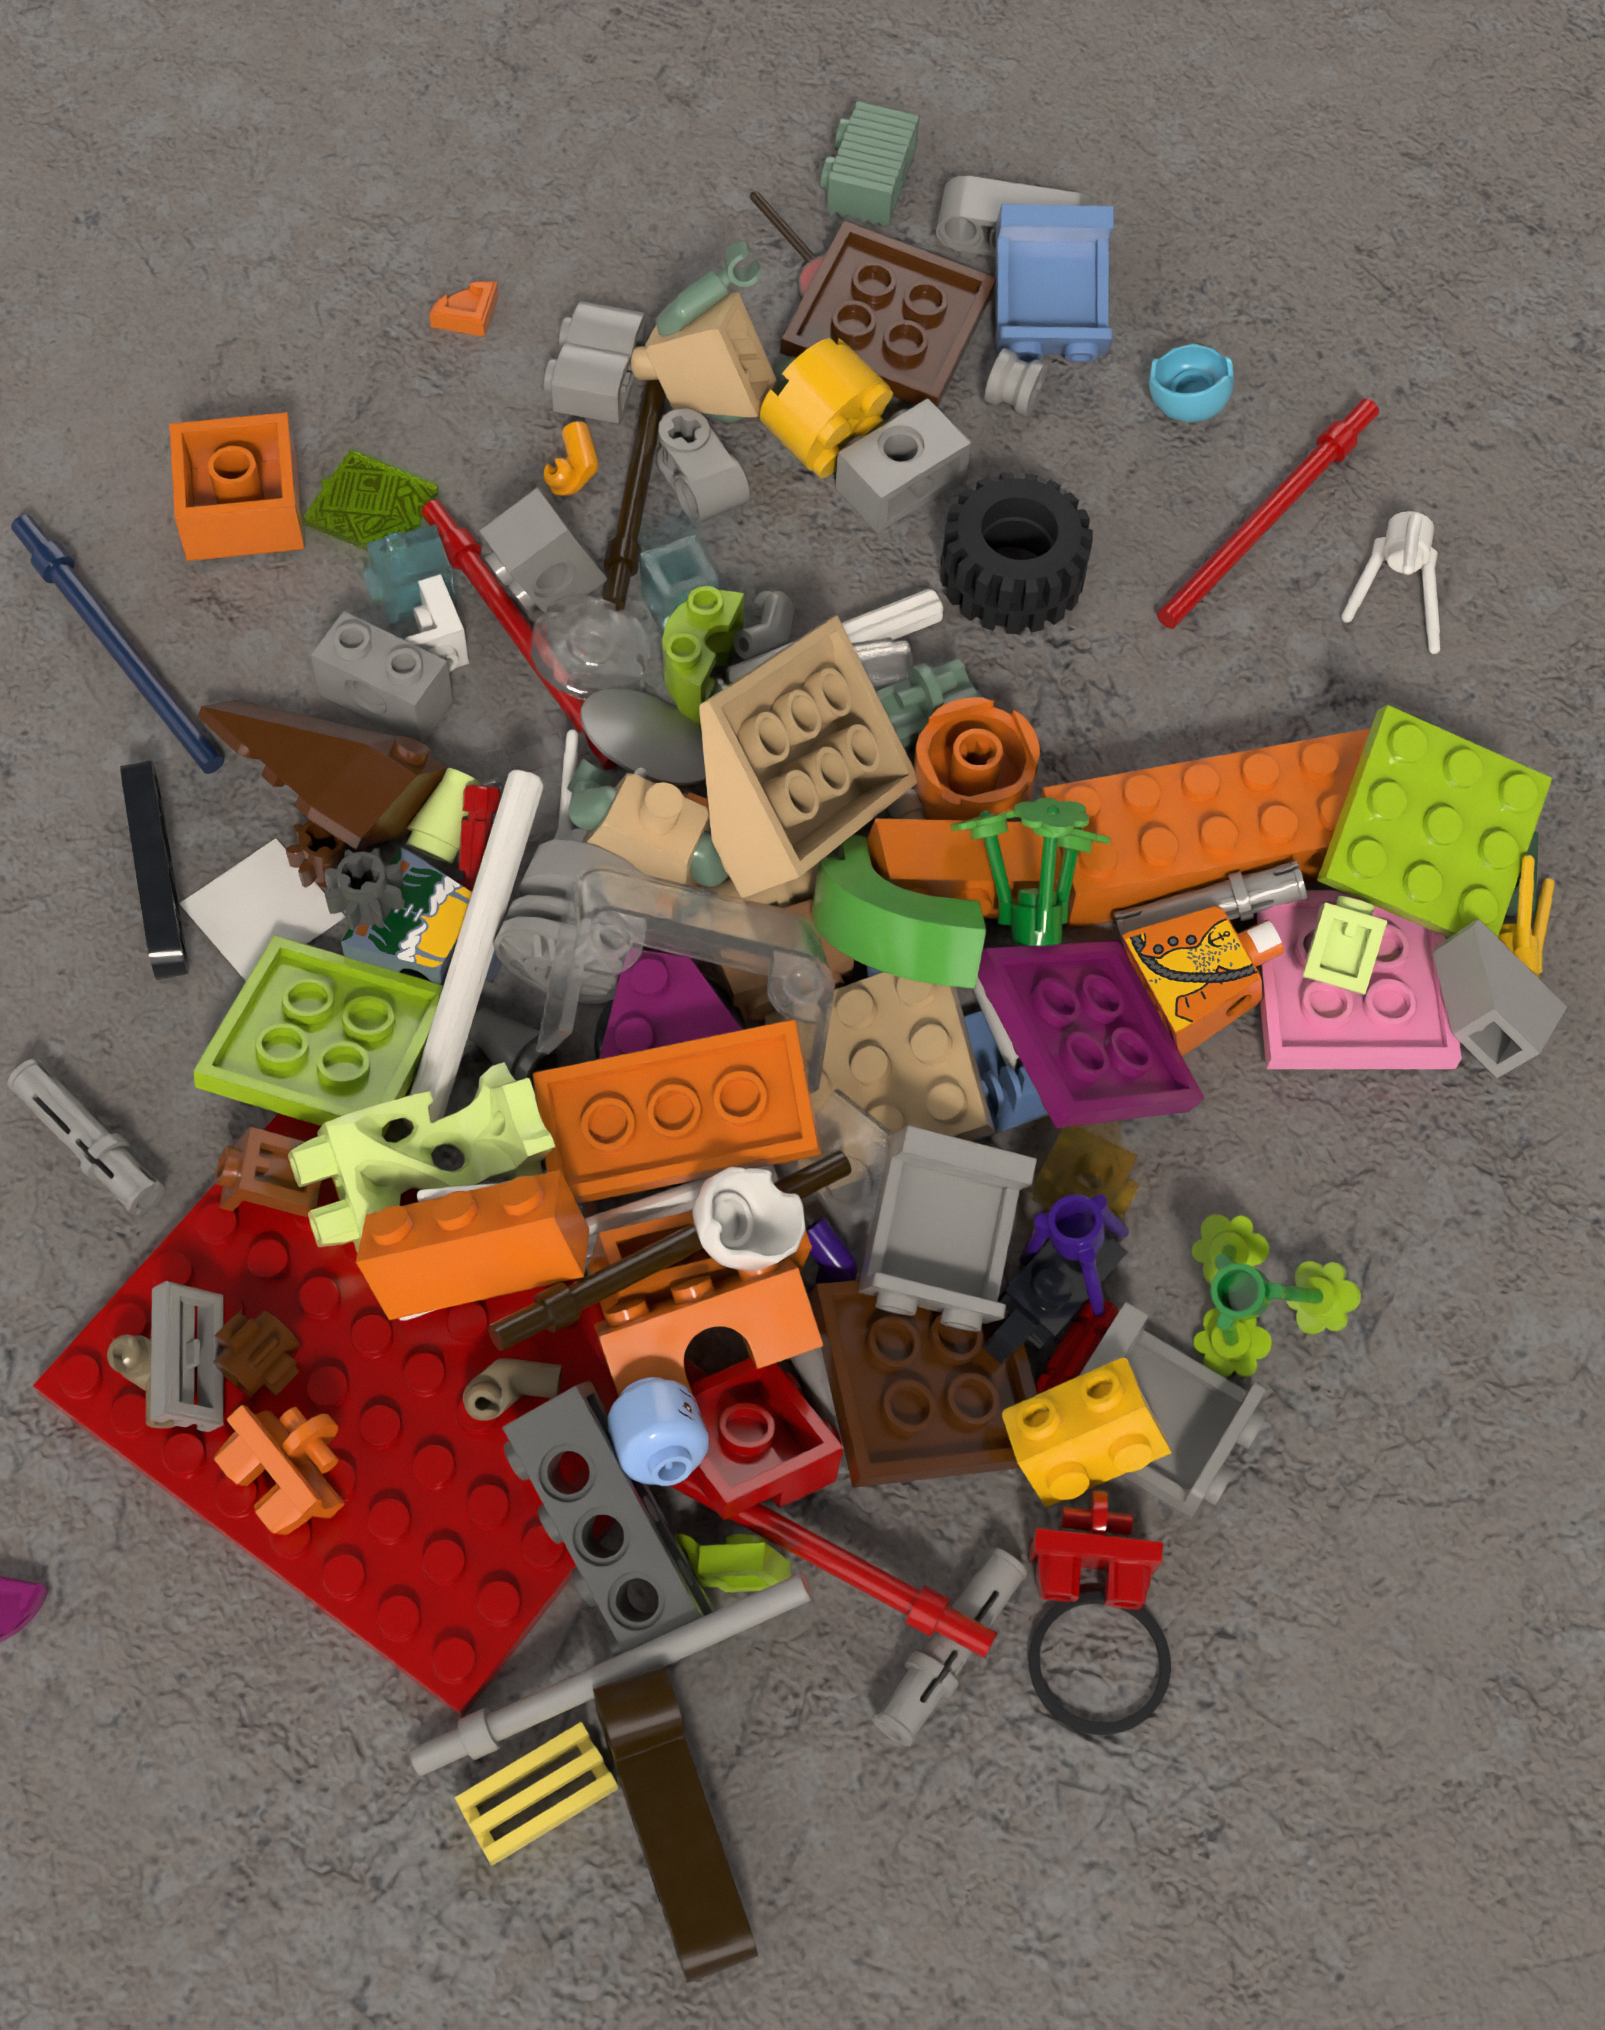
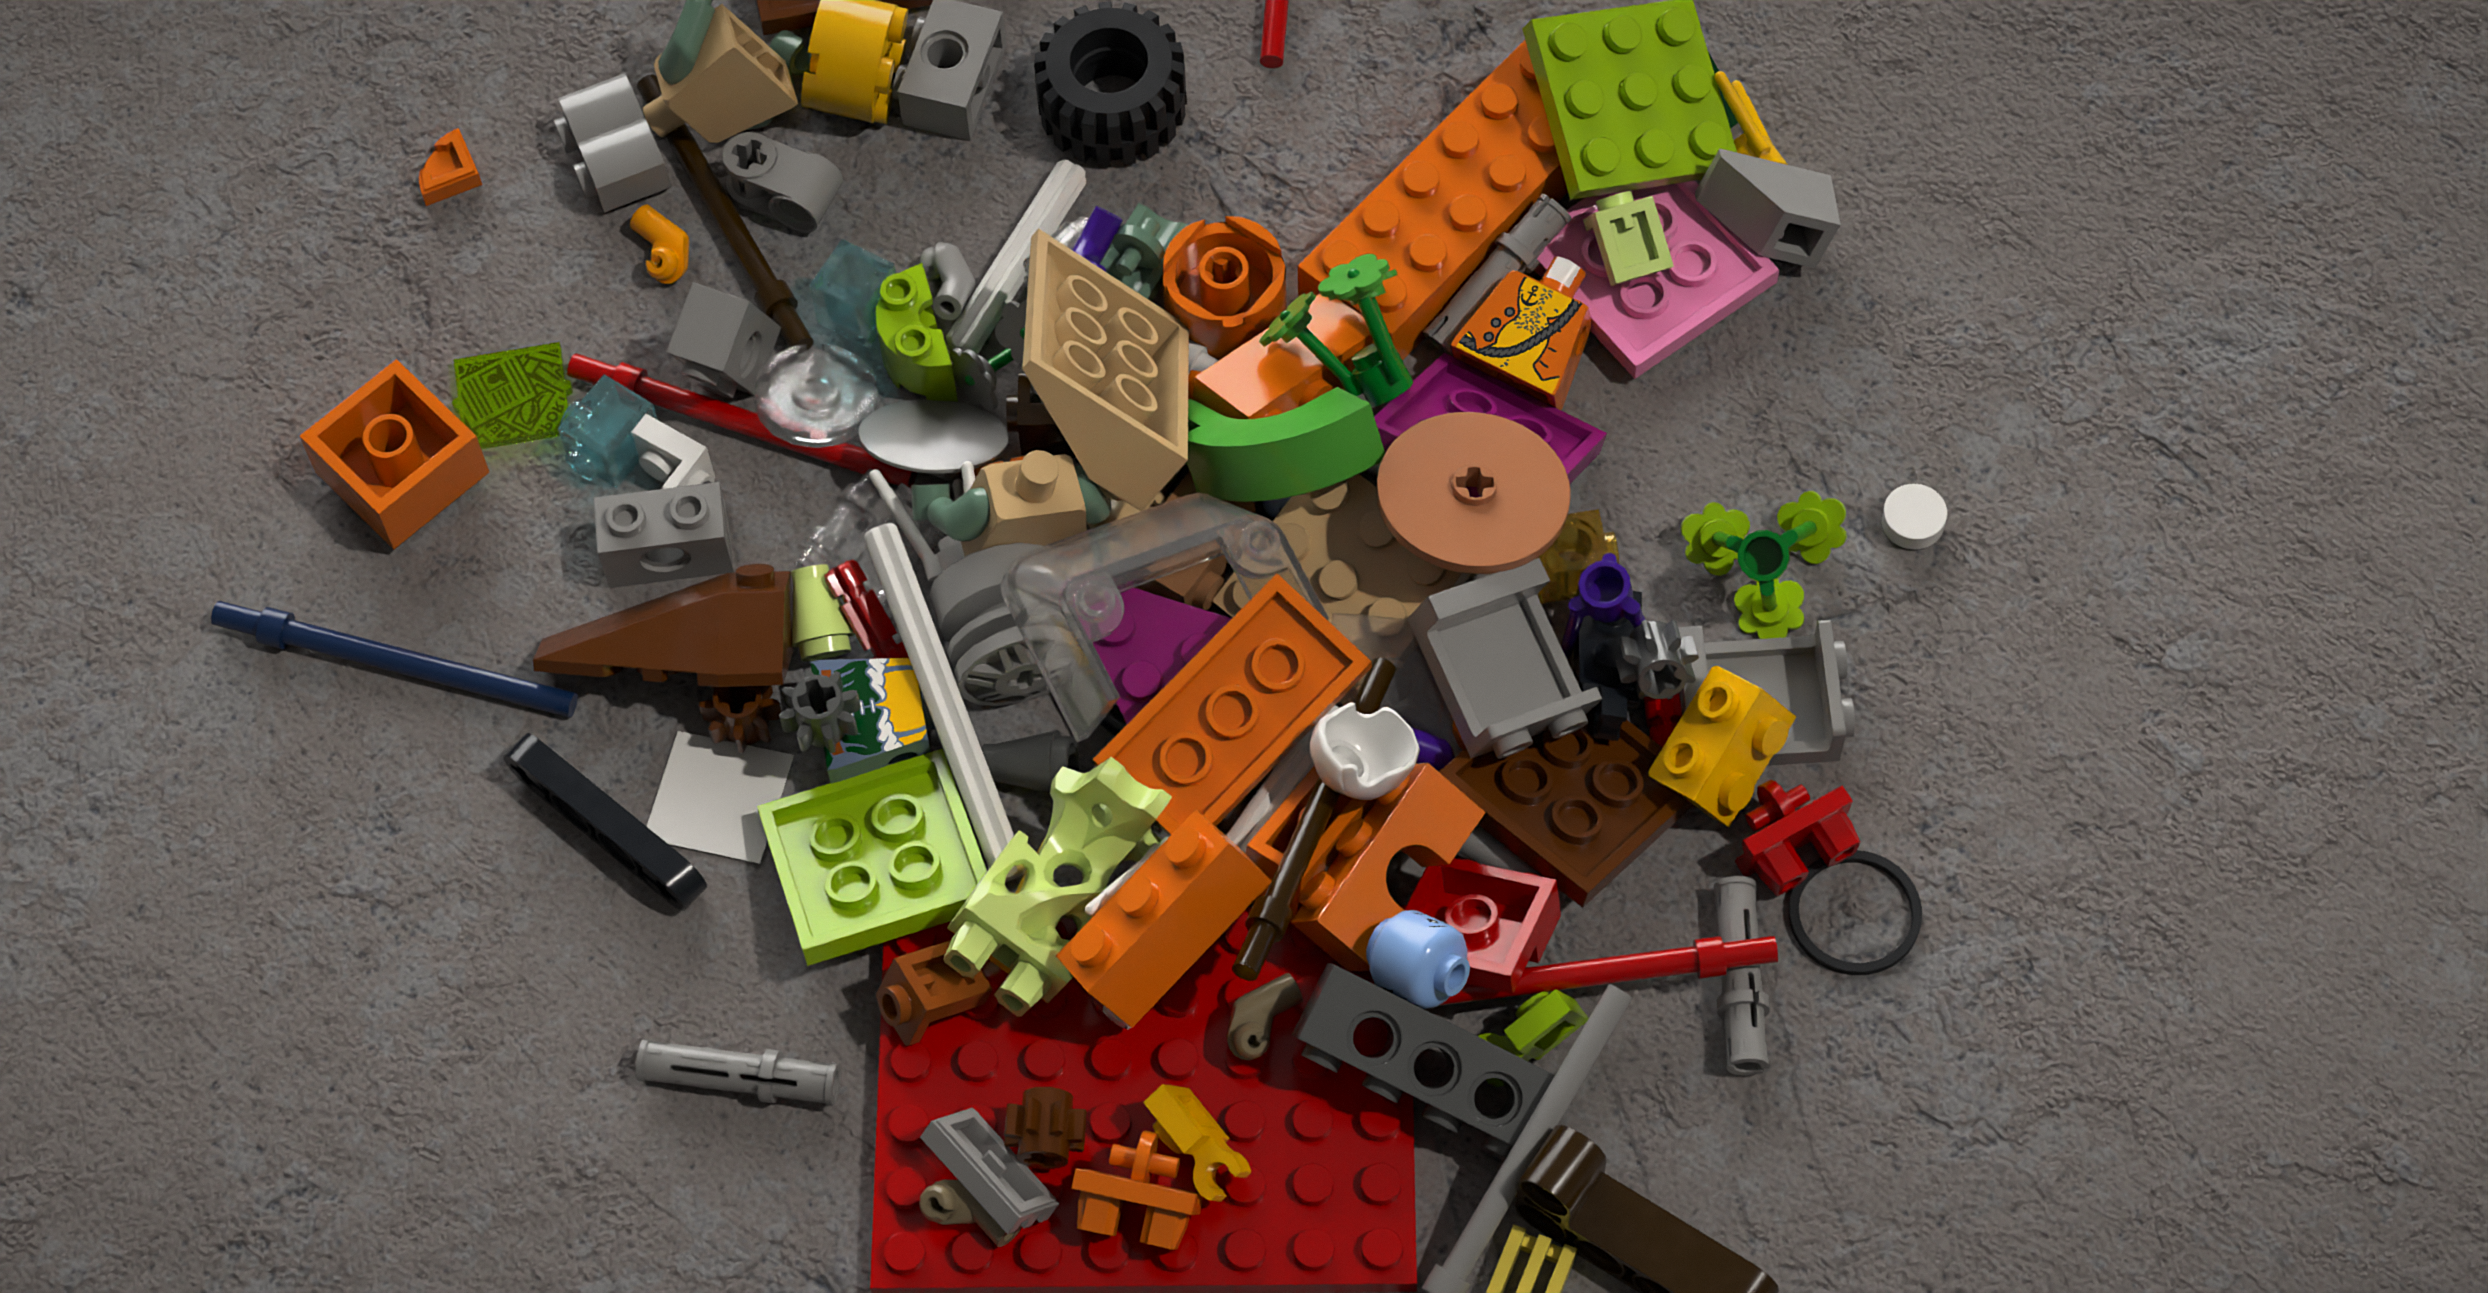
camera: 30 degrees left, 0 degrees up
(374, 1443) = (1190, 1129): none -> yellow plate
(894, 662) = (1097, 236): none -> dark purple arm
(1053, 1103) = (1431, 510): none -> nougat piece
(1079, 1317) = (1657, 659): none -> dark grey gear
(1422, 1350) = (1914, 516): none -> white tile

